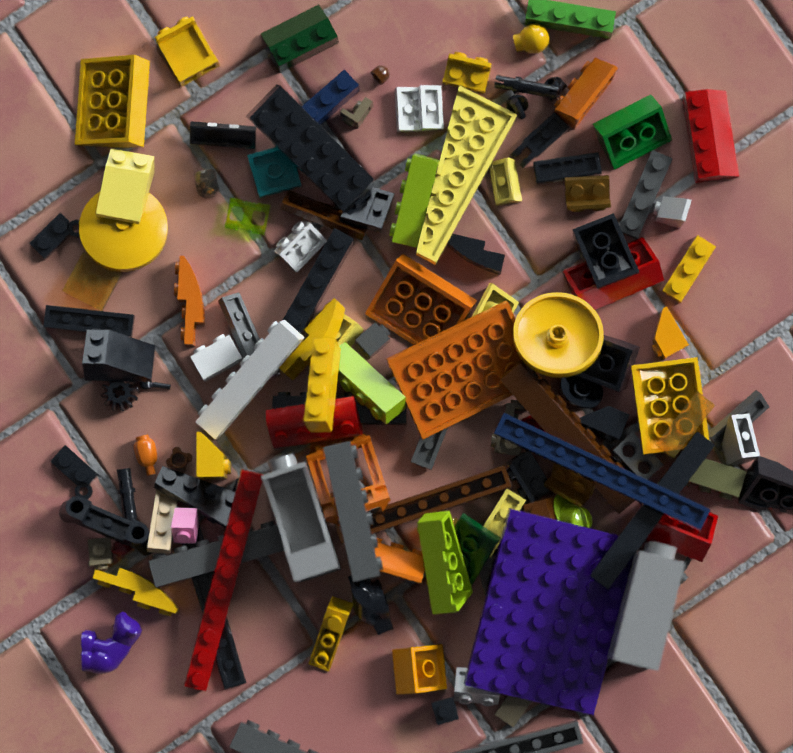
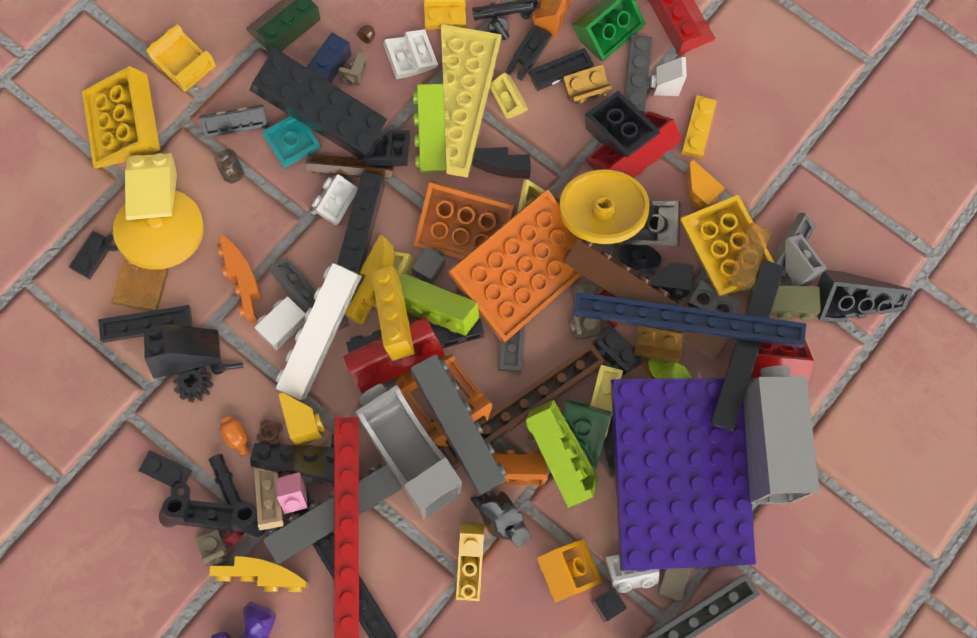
camera: 25 degrees left, 10 degrees down
(246, 223) = (277, 194): clear neon green piece -> none

